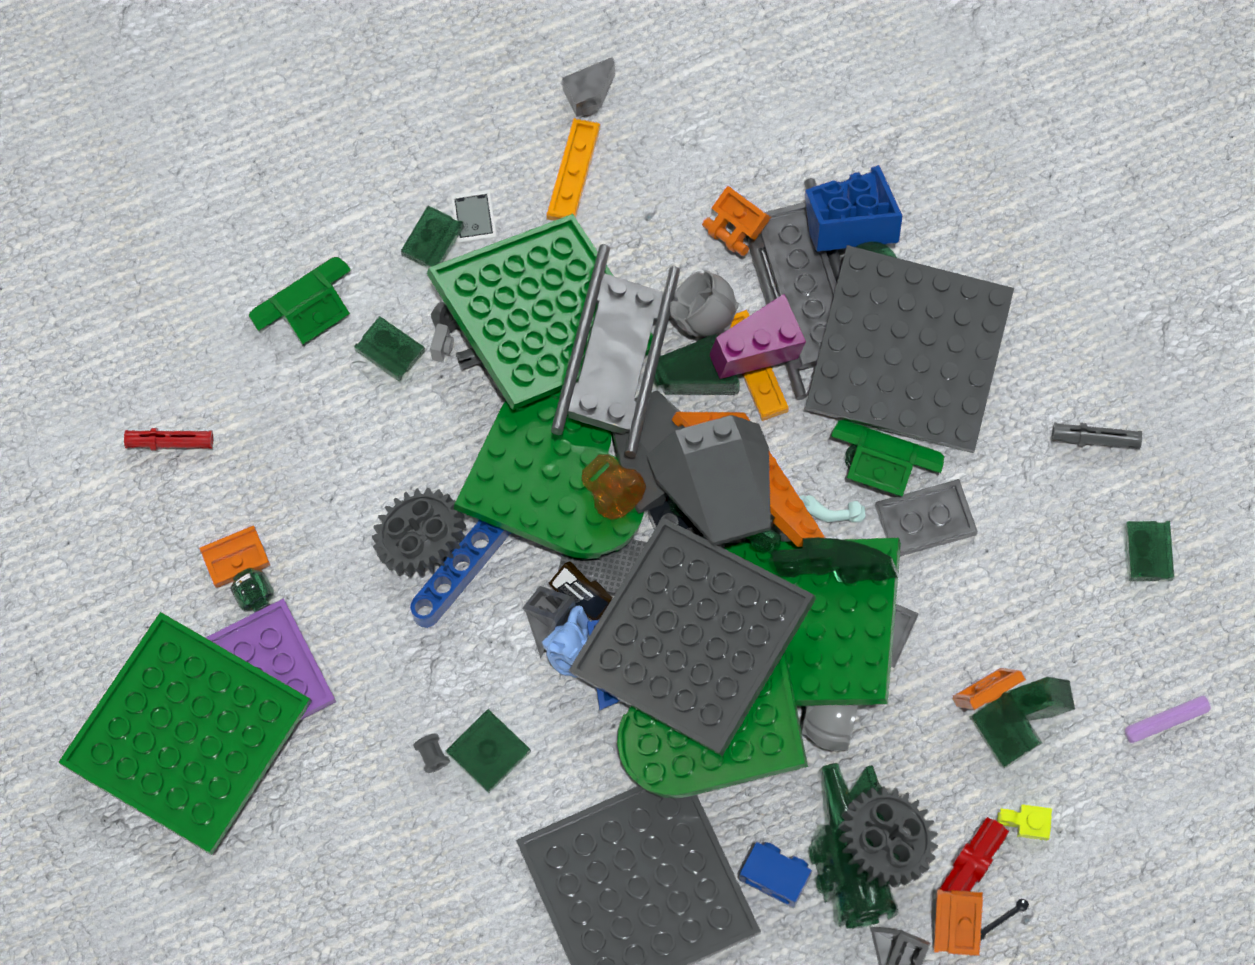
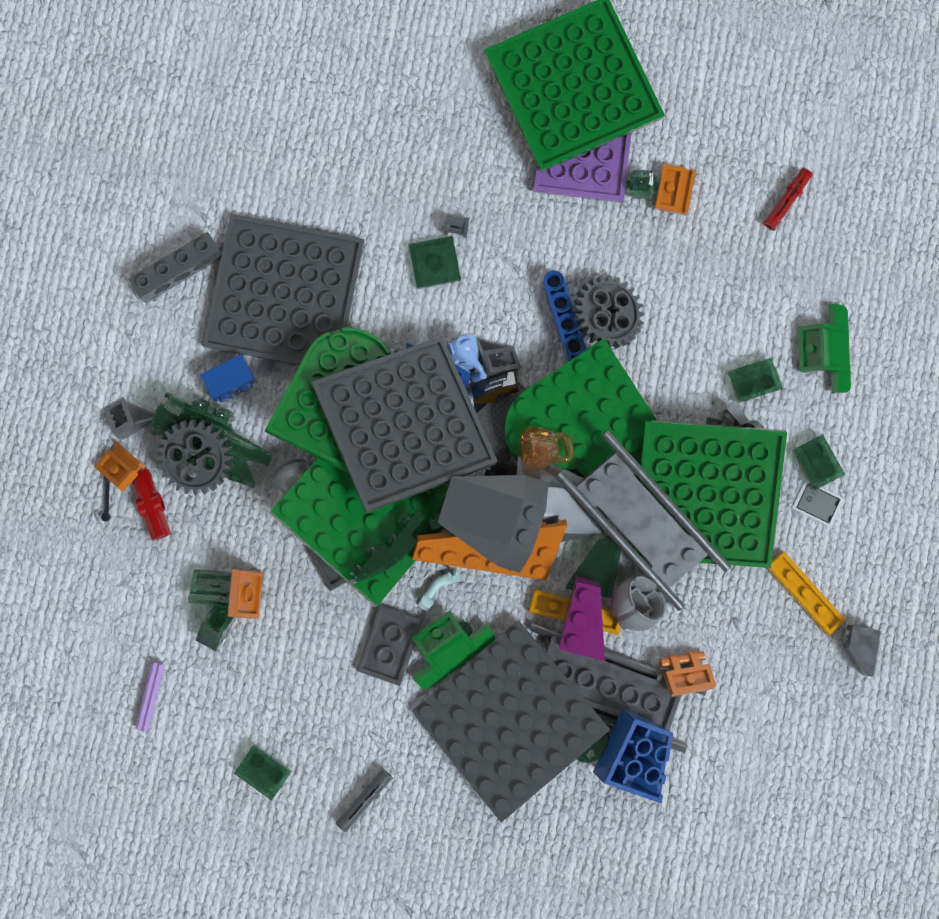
camera: 120 degrees right, 15 degrees up
(1031, 821) = (150, 560): neon yellow plate -> none

